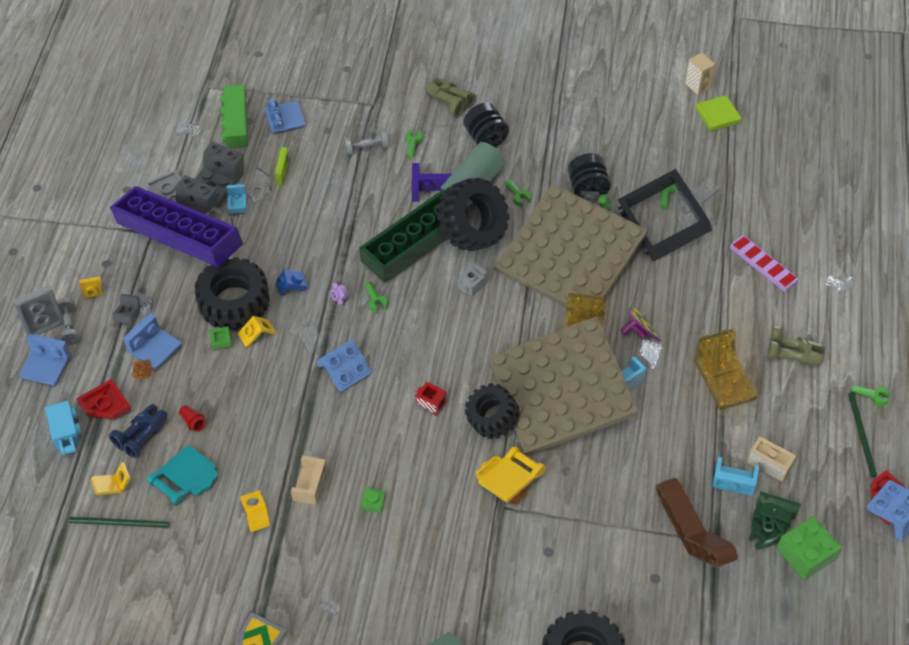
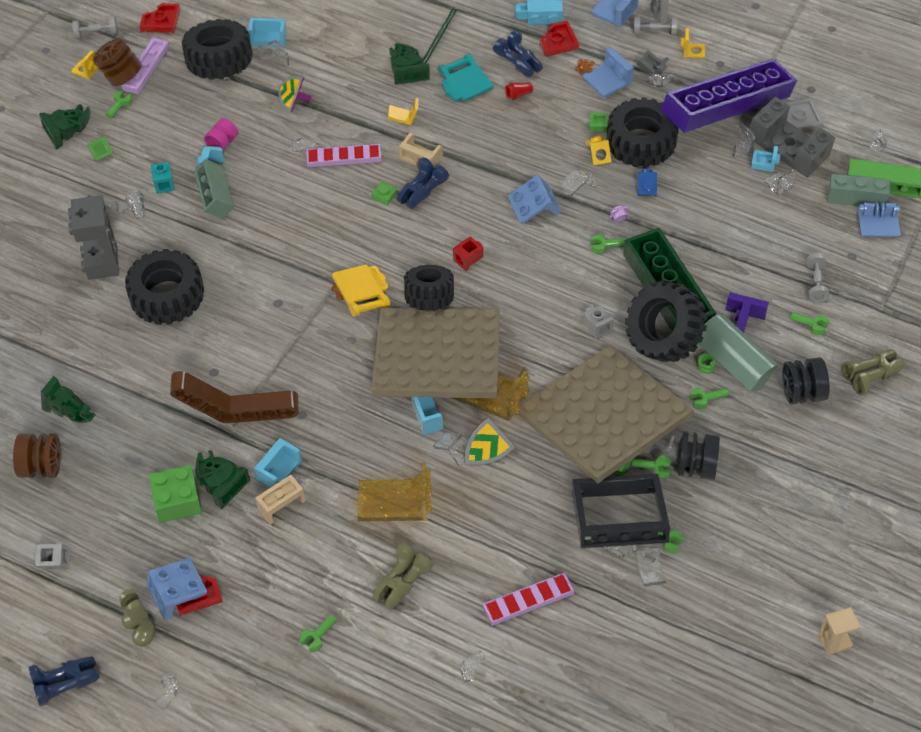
camera: 110 degrees right, 0 degrees up
(111, 483) = (474, 30): yellow bracket -> none
(175, 536) = (408, 65): none -> dark green piece
(258, 130) = (857, 190): none -> sand green brick
(282, 166) = (802, 202): lime tile -> none
(331, 557) = (343, 155): none -> tile
(369, 467) = (415, 191): none -> dark blue piece
(718, 113) = (778, 642): lime tile -> none
(862, 435) = (267, 601): dark green axle -> none

